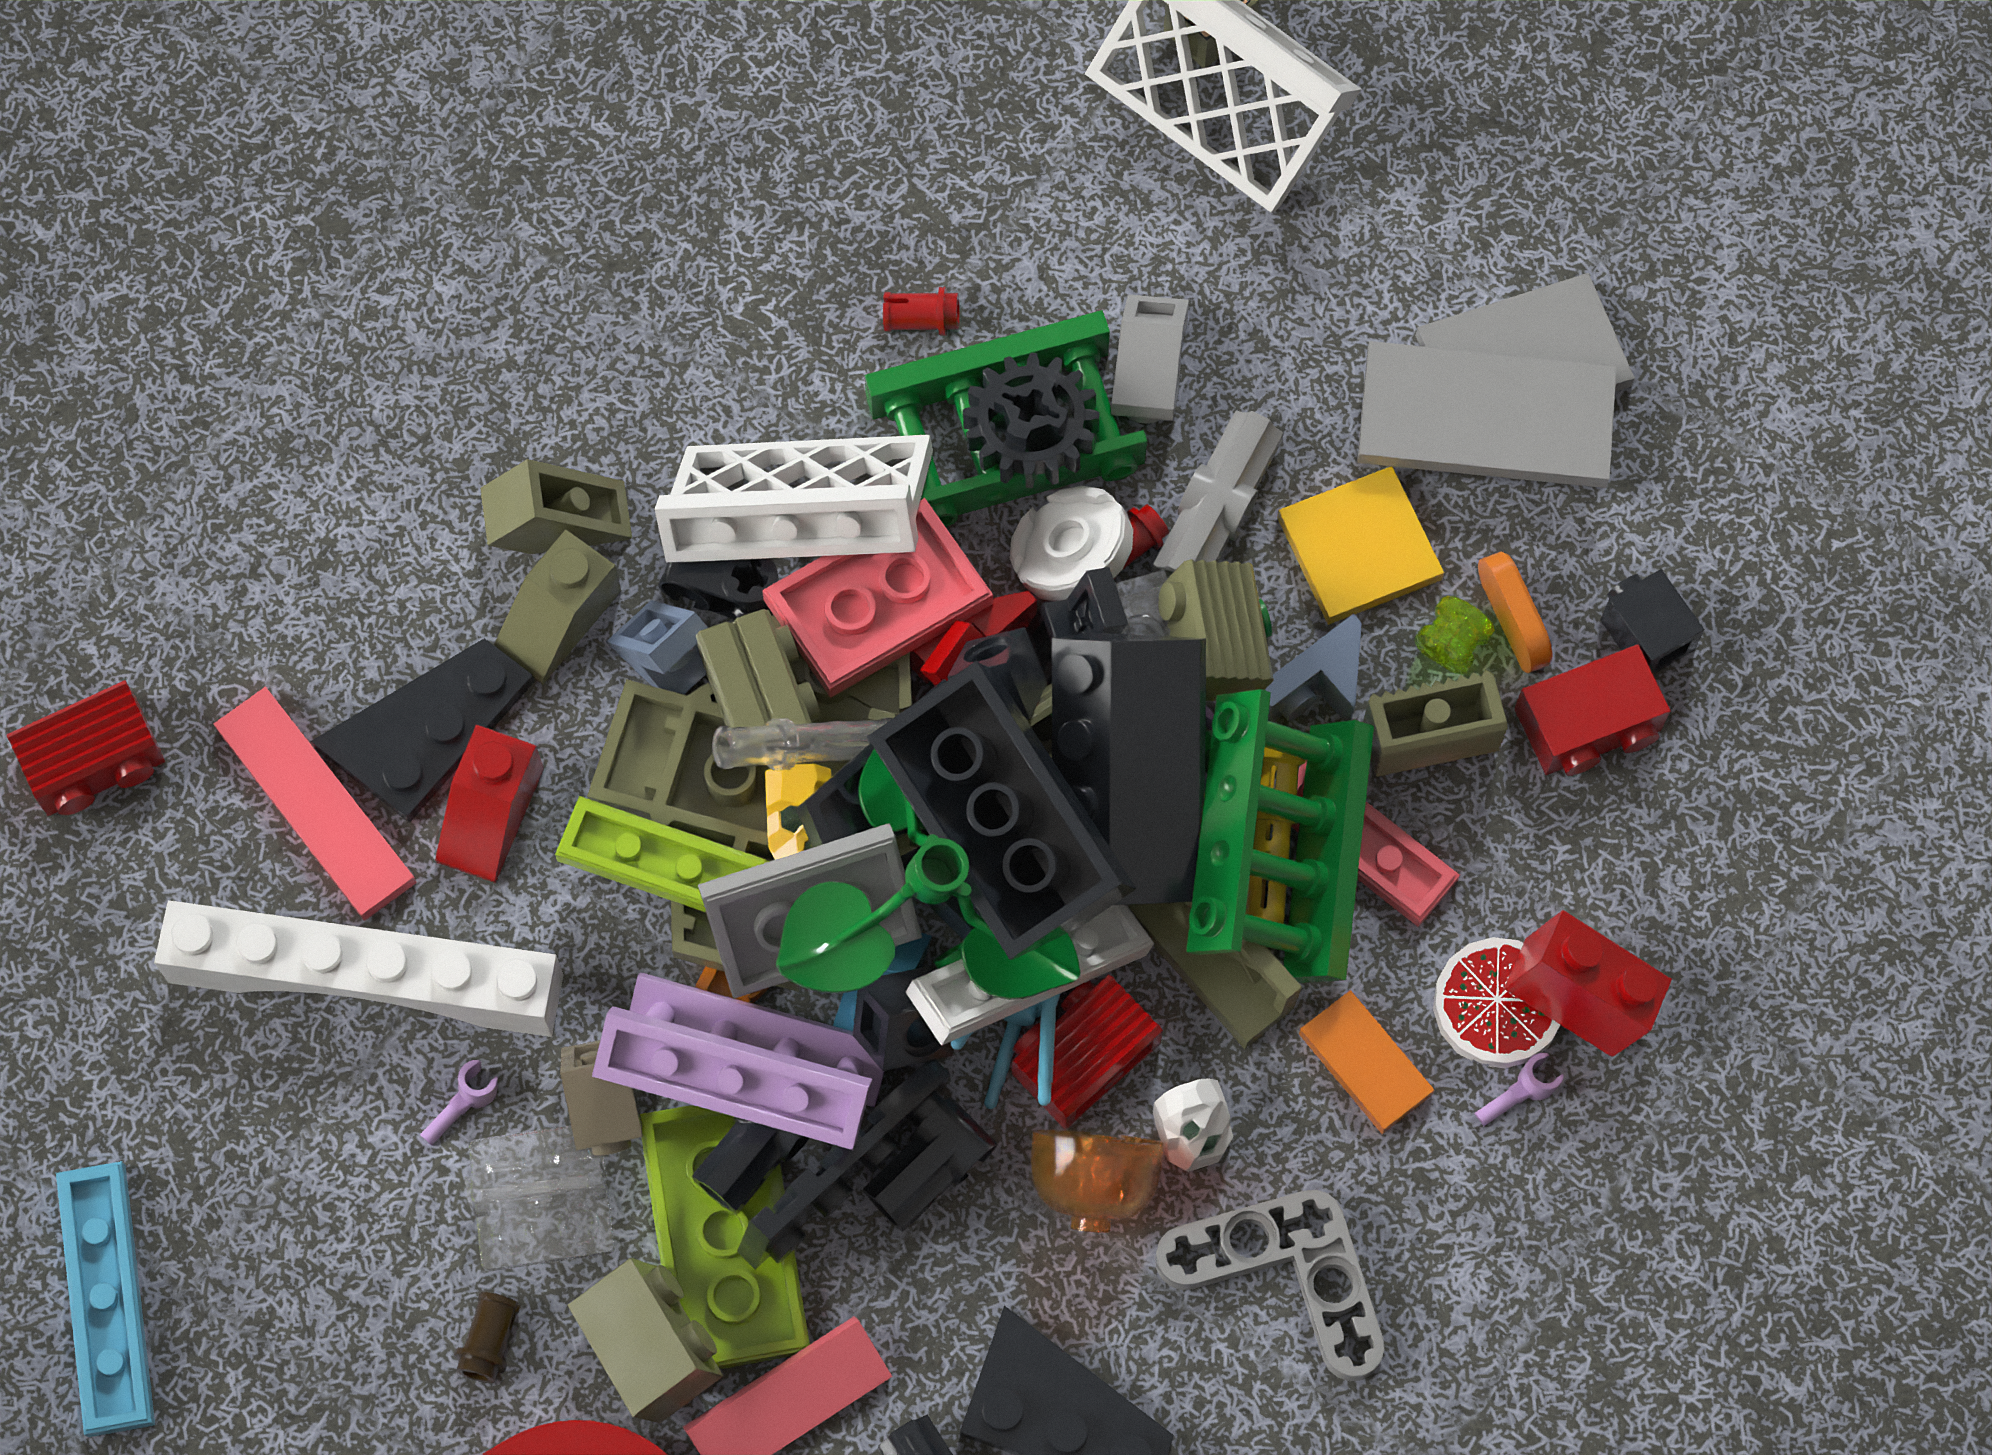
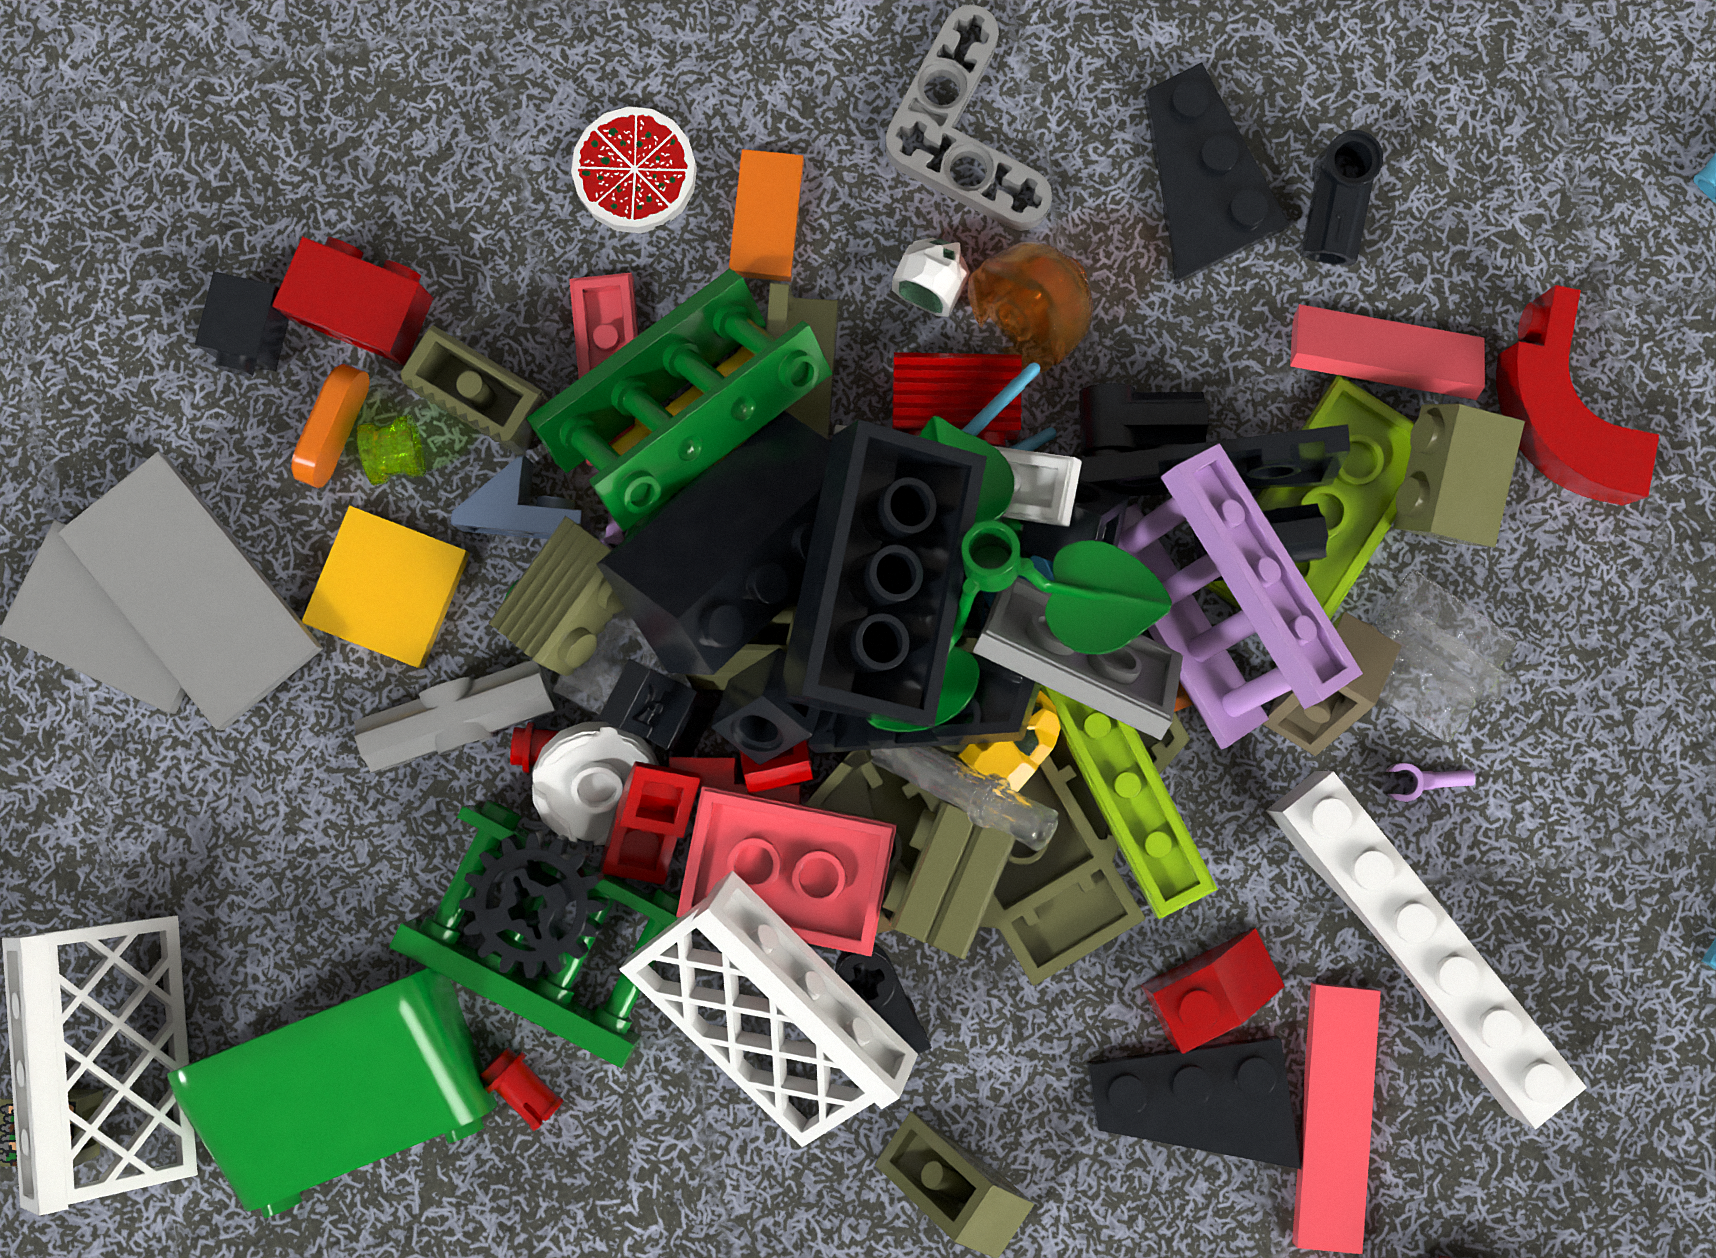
camera: 135 degrees left, 15 degrees up
(487, 1338) = (1570, 579): dark brown pin -> none
(557, 605) = (1024, 1103): olive slope -> none
(662, 646) = (975, 996): sand blue slope -> none
(1006, 546) = (648, 822): none -> red slope
(1042, 199) = (336, 1090): none -> green windscreen
(1149, 358) = (388, 879): light grey slope -> none
(1524, 1088) = (680, 99): lavender hand -> none
(1588, 983) = (566, 105): red brick -> none

